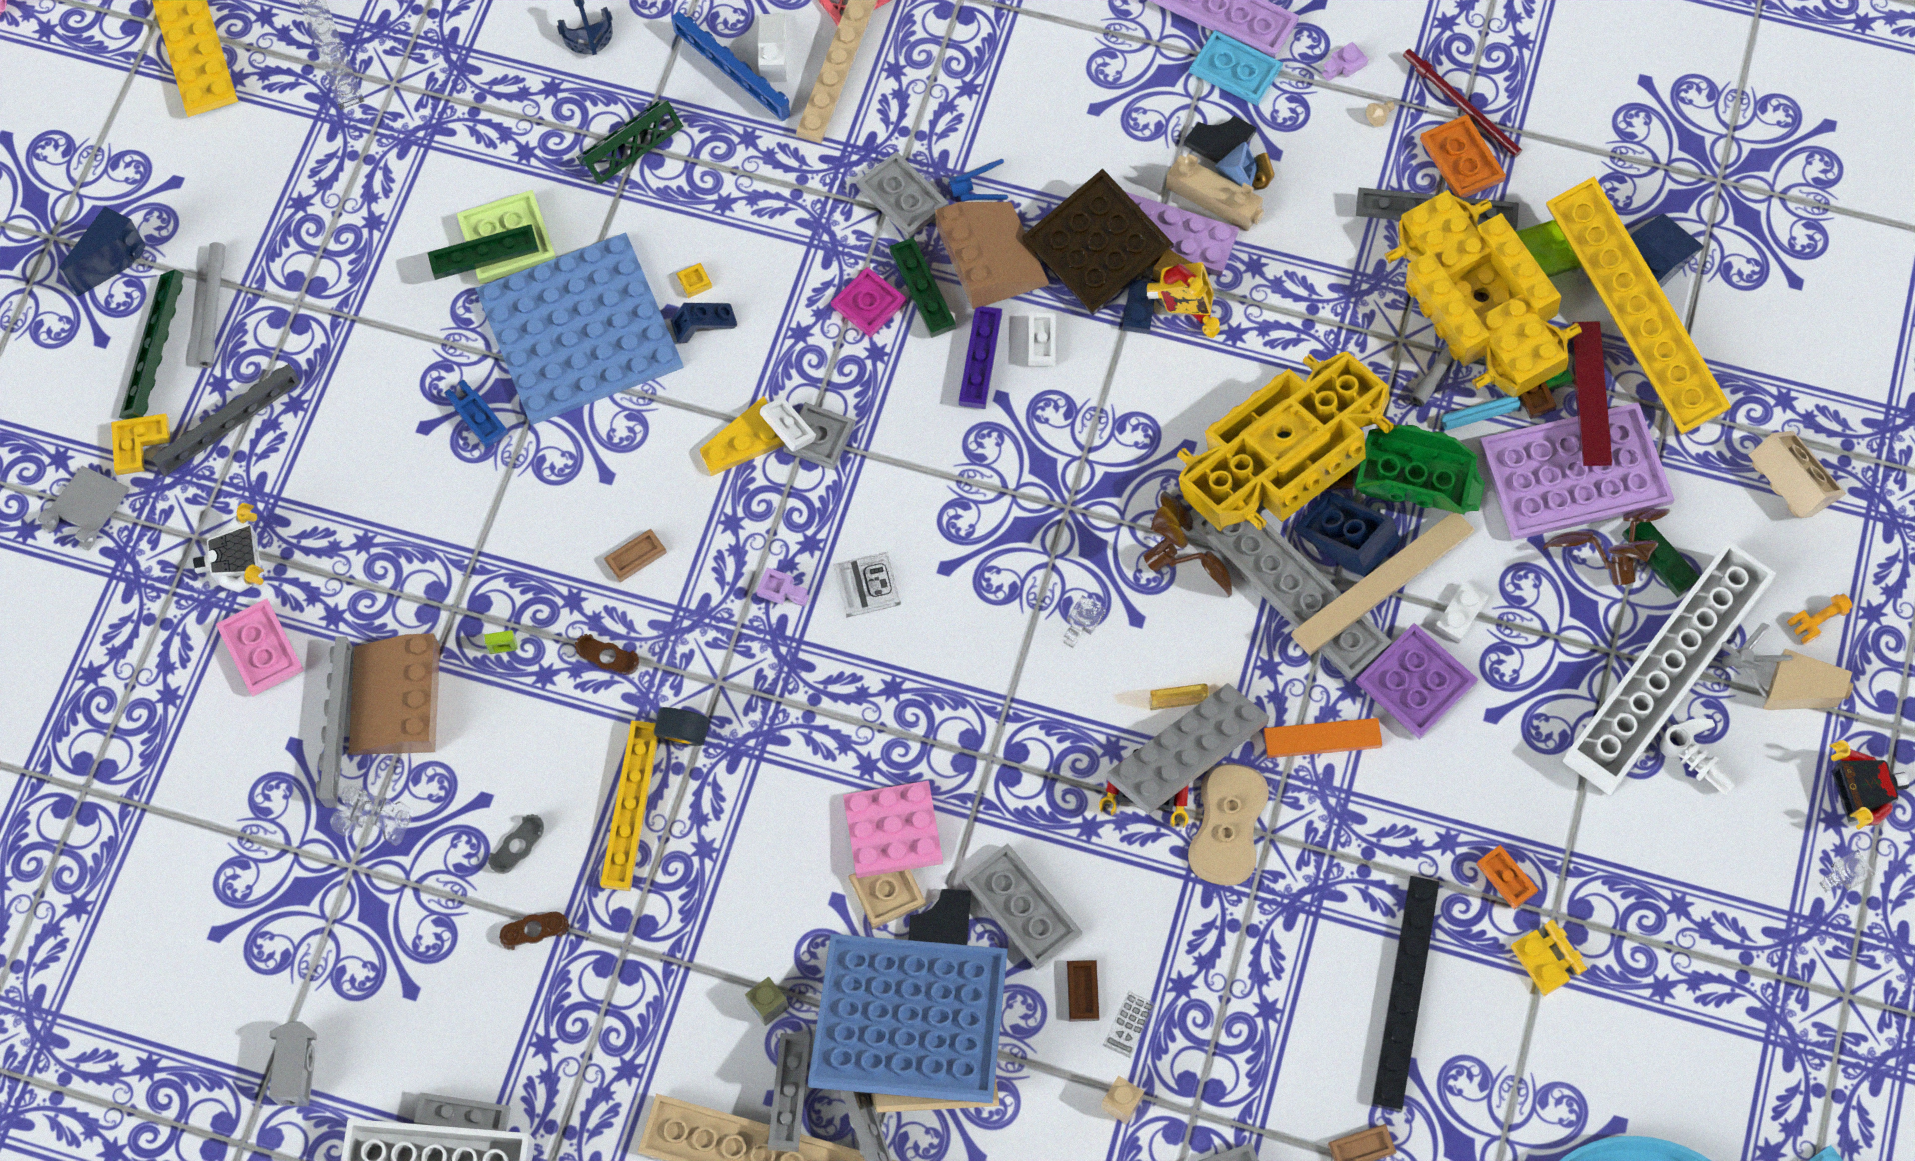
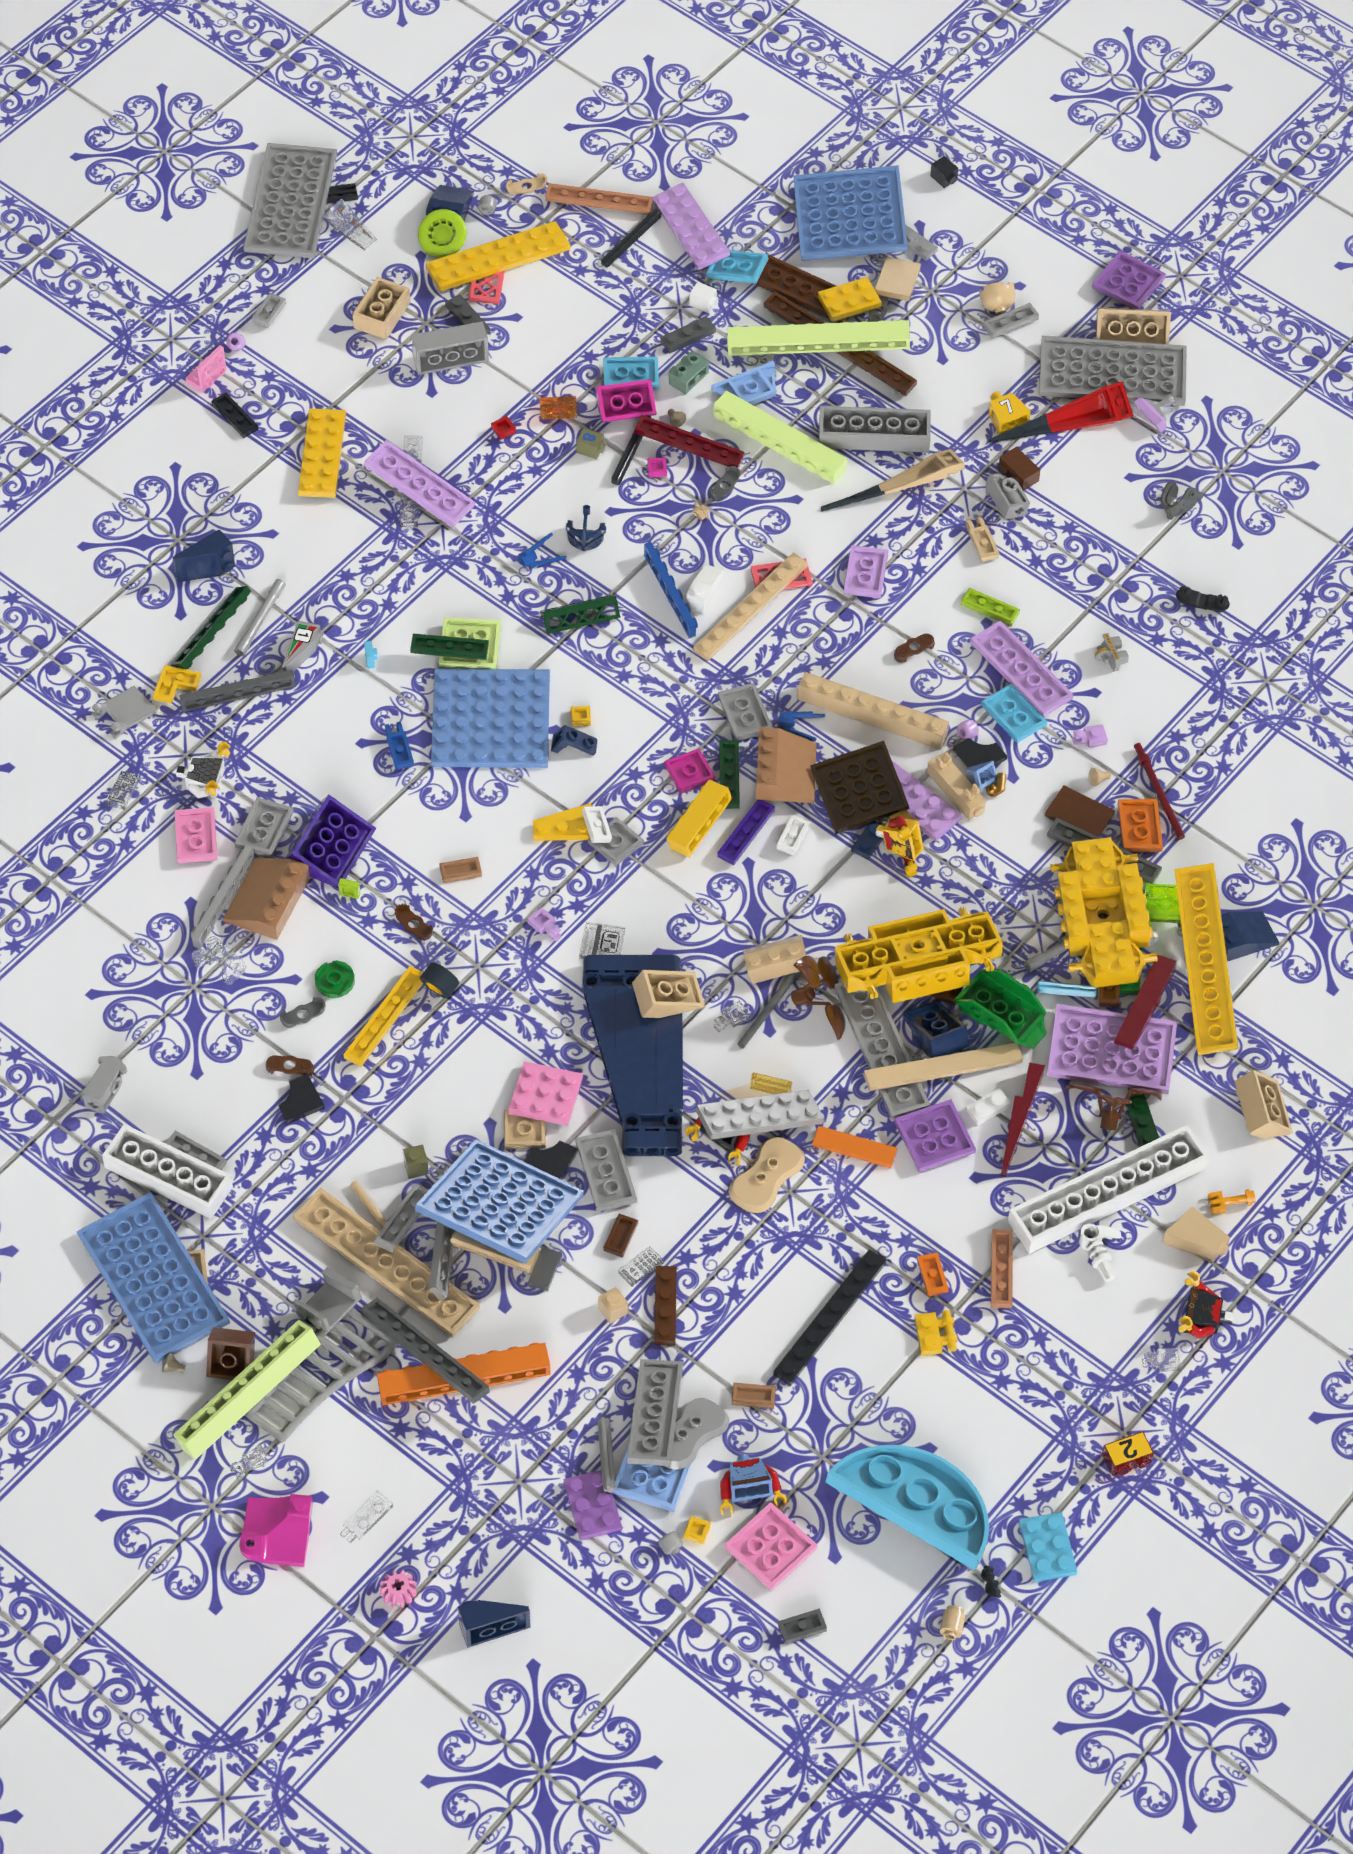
camera: 20 degrees right, 10 degrees down
(54, 37) = (234, 415): none -> black tile
(131, 621) = (122, 790): none -> clear tile
(286, 322) = (302, 645): none -> light grey slope
(342, 42) = (419, 483): none -> lavender plate
(347, 599) = (264, 827): none -> light grey plate
(382, 301) = (371, 654): none -> medium azure plate
(447, 585) = (331, 841): none -> dark purple slope
(529, 88) = (528, 557): none -> blue plant
(538, 778) = (334, 979): none -> green tile
(572, 973) = (302, 1100): none -> black tile
(733, 1089) = (369, 1204): none -> tan bar
(914, 363) = (699, 818): none -> yellow brick
(985, 710) = (637, 1052): none -> dark blue panel
(992, 626) = (667, 993): none -> tan slope
(1009, 1083) = (545, 1269): none -> dark grey tile
(1062, 37) = (904, 651): none -> reddish brown piece
(1063, 131) = (872, 710): none -> tan brick
(1103, 517) = (774, 959): none -> tan slope
(1133, 529) = (768, 1009): none -> dark grey bar
(1187, 1067) = (665, 1305): none -> reddish brown plate
(1191, 111) = (967, 729): none -> lavender piece
(1380, 167) = (1080, 811): none -> reddish brown tile
(1508, 608) = (1020, 1112): none -> dark red slope
(1589, 832) = (1001, 1268): none -> nougat plate
(1745, 657) = (1163, 1201): light grey plant -> none
(1872, 1026) = (1128, 1454): none -> brick

